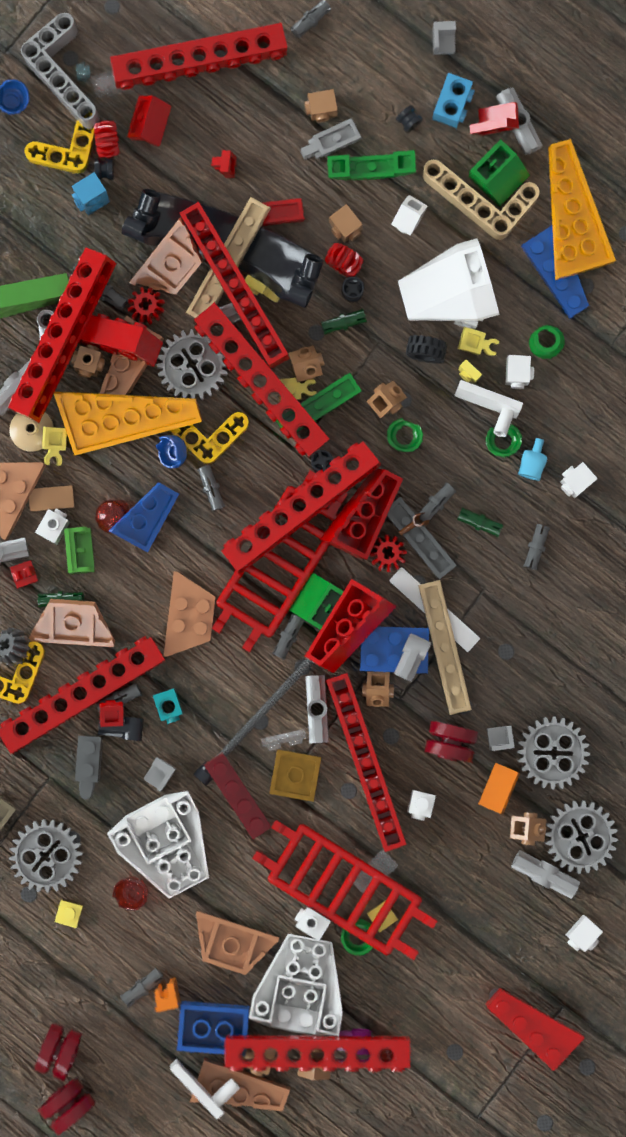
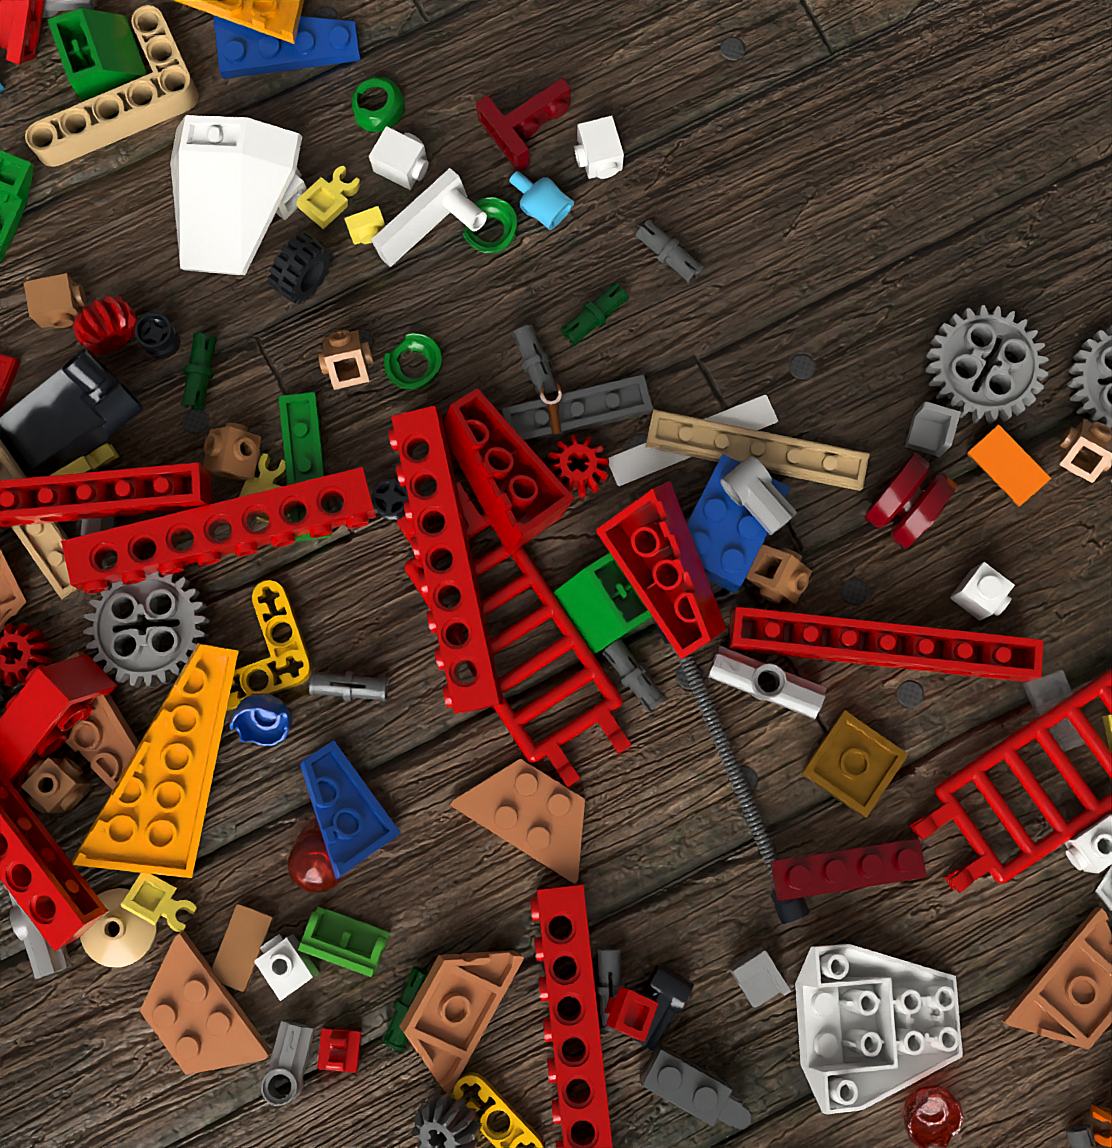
camera: 60 degrees left, 5 degrees down
(161, 698) = (641, 904): teal brick -> none
(293, 738) = (793, 740): clear plate -> none
(409, 215) = (91, 203): white brick -> none
(573, 430) = (523, 120): none -> dark red bracket

